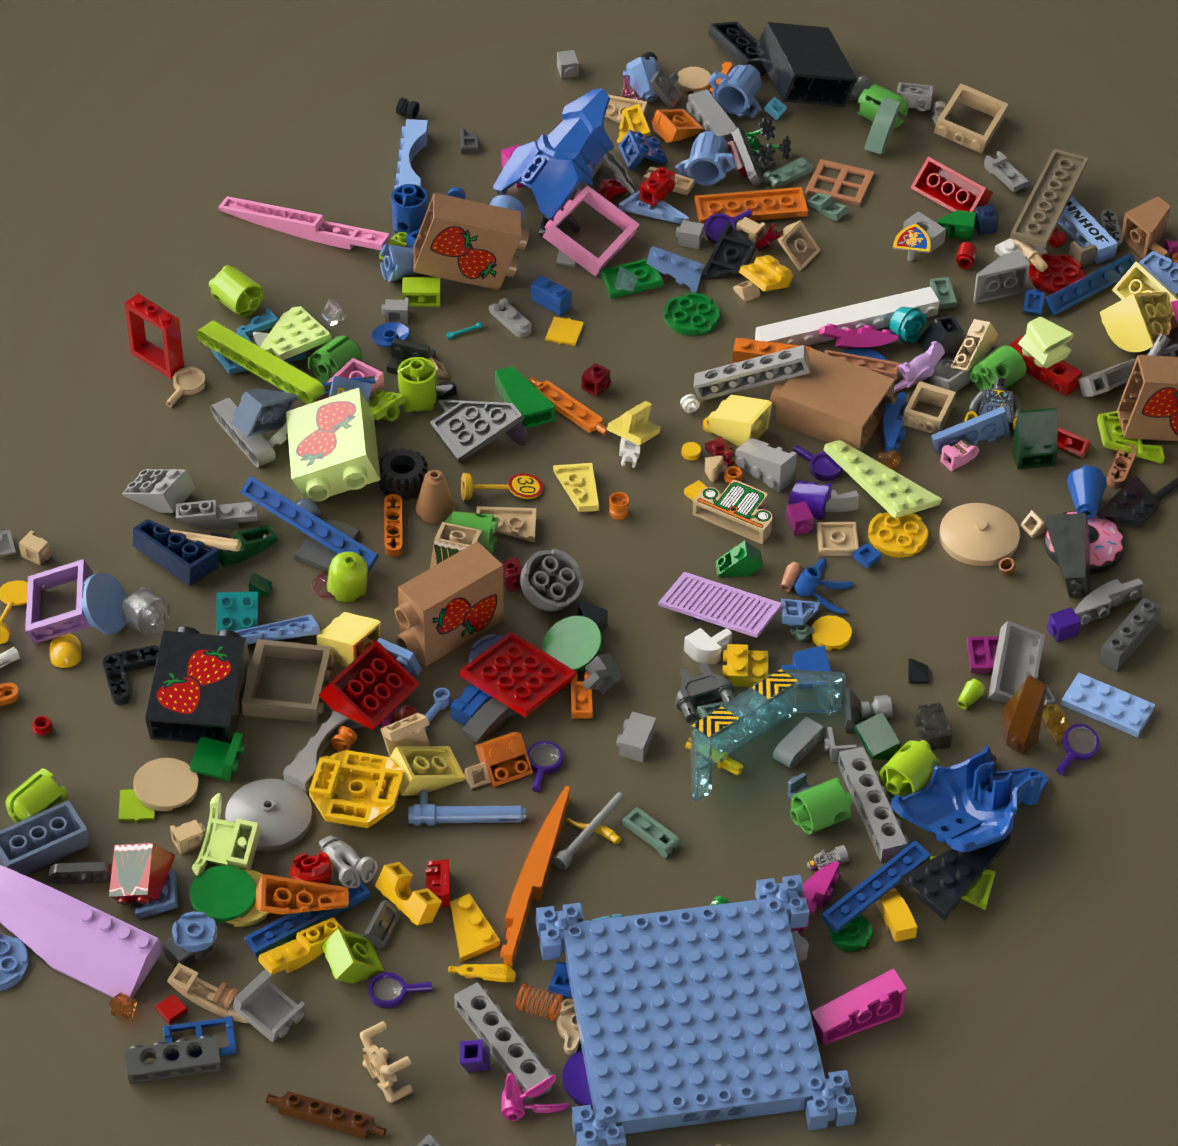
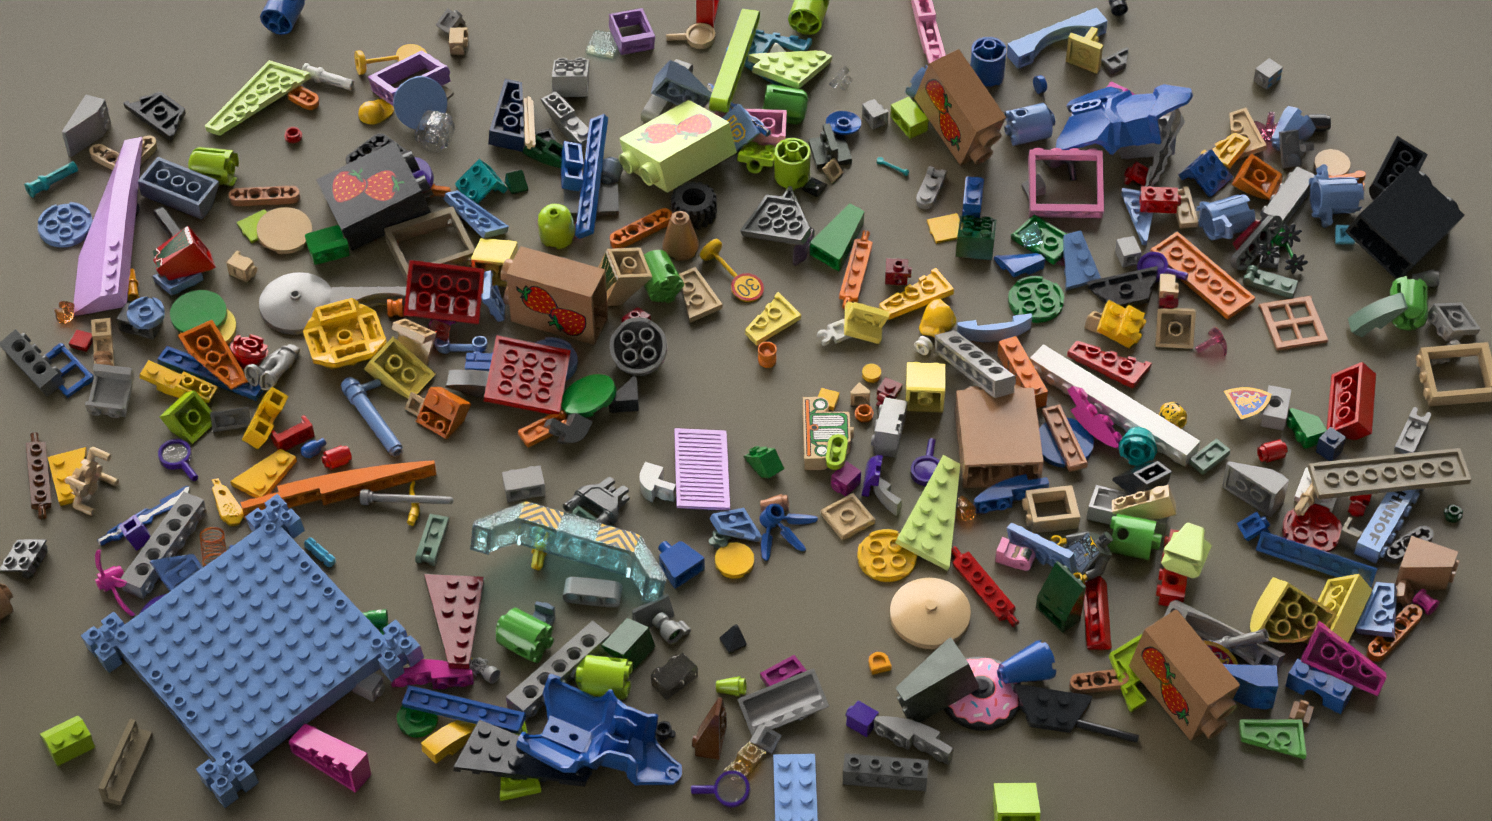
camera: 60 degrees right, 5 degrees up
(104, 782) = (264, 198): none -> nougat beam
(134, 450) = (602, 44): none -> clear light blue piece
(143, 409) = (632, 43): none -> medium lavender window
(227, 841) = (246, 293): yellowish green piece -> none
(282, 533) = (571, 166): none -> blue slope
(346, 1090) = (63, 466): none -> yellow wing
(449, 1048) = (146, 516): none -> blue sword
(451, 148) = (1085, 51): none -> light yellow bracket
(468, 876) = (312, 448): none -> blue cylinder
(496, 861) = (336, 457): none -> red brick
(544, 759) = (463, 439): piece -> none
(547, 1042) = (176, 569): none -> medium blue wing
(597, 315) = (976, 237): none -> dark green slope
(629, 379) = (918, 295): none -> yellow wing
(645, 304) = (1020, 263): none -> blue slope
(671, 380) = (937, 319): none -> yellow piece
(707, 361) = (995, 332): none -> light blue slope
(744, 666) = (652, 519): yellow plate -> none
(756, 847) = (456, 611): none -> wing
(777, 505) = (836, 453): none -> lime plate
(805, 302) = (1121, 369): none -> red wing
(824, 205) = (1252, 327): sand green slope -> none
(826, 227) = (1217, 337): none -> clear pink plant
(829, 745) = (605, 613): light grey bracket -> none
(867, 555) = (839, 544): blue plate -> none
(887, 288) = (1174, 414): none -> yellow head
(920, 367) = (1090, 478): lavender animal -> none
(976, 487) = (984, 586): none -> red plate
(1005, 566) = (902, 648): dark orange hinge -> none
(1008, 590) = (879, 663): none -> light orange tile
(1033, 525) = (971, 646): tan slope -> none
(1098, 191) = (1453, 517): none -> dark green plate

